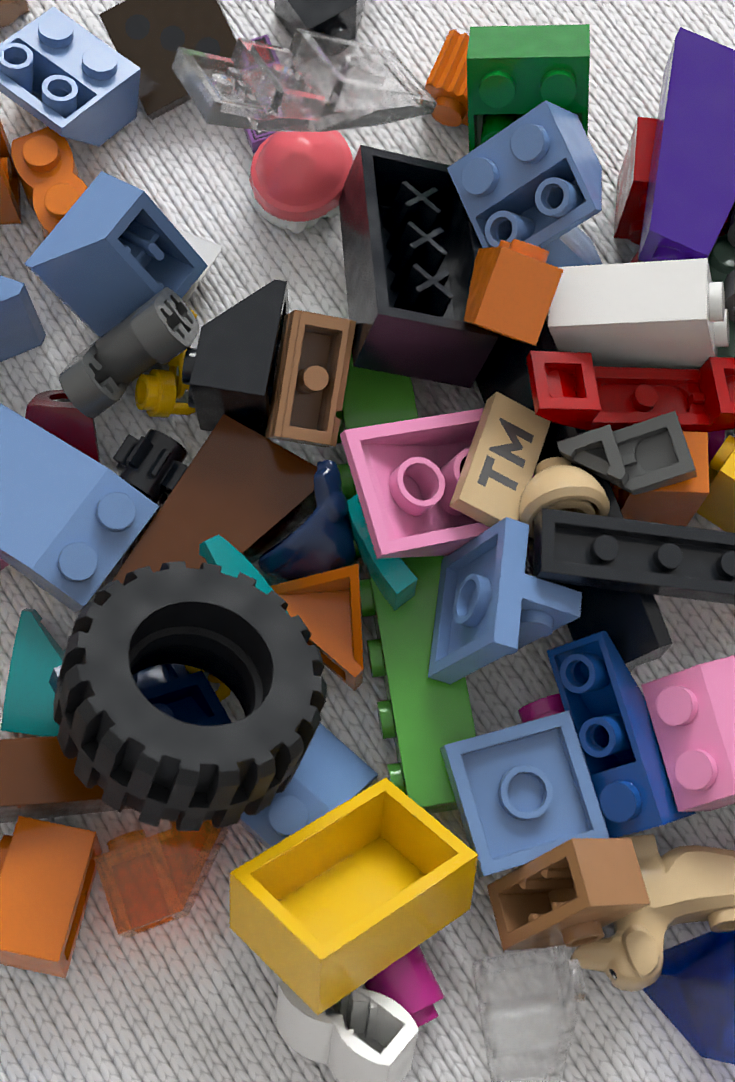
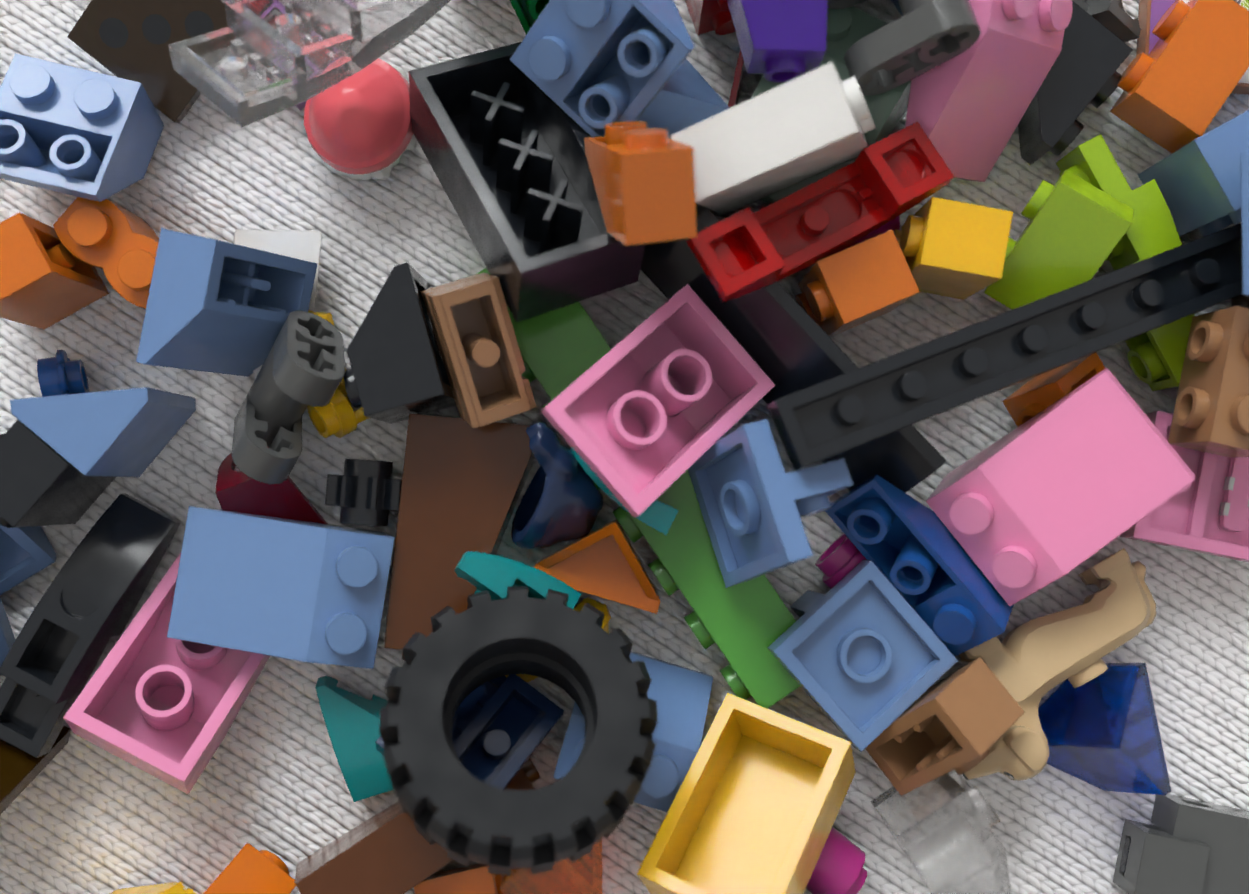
camera: 20 degrees left, 15 degrees up
(499, 461) = (706, 358): tan tile -> none
(562, 488) = (780, 365): tan brick -> none
(636, 456) = (835, 289): dark grey slope -> none

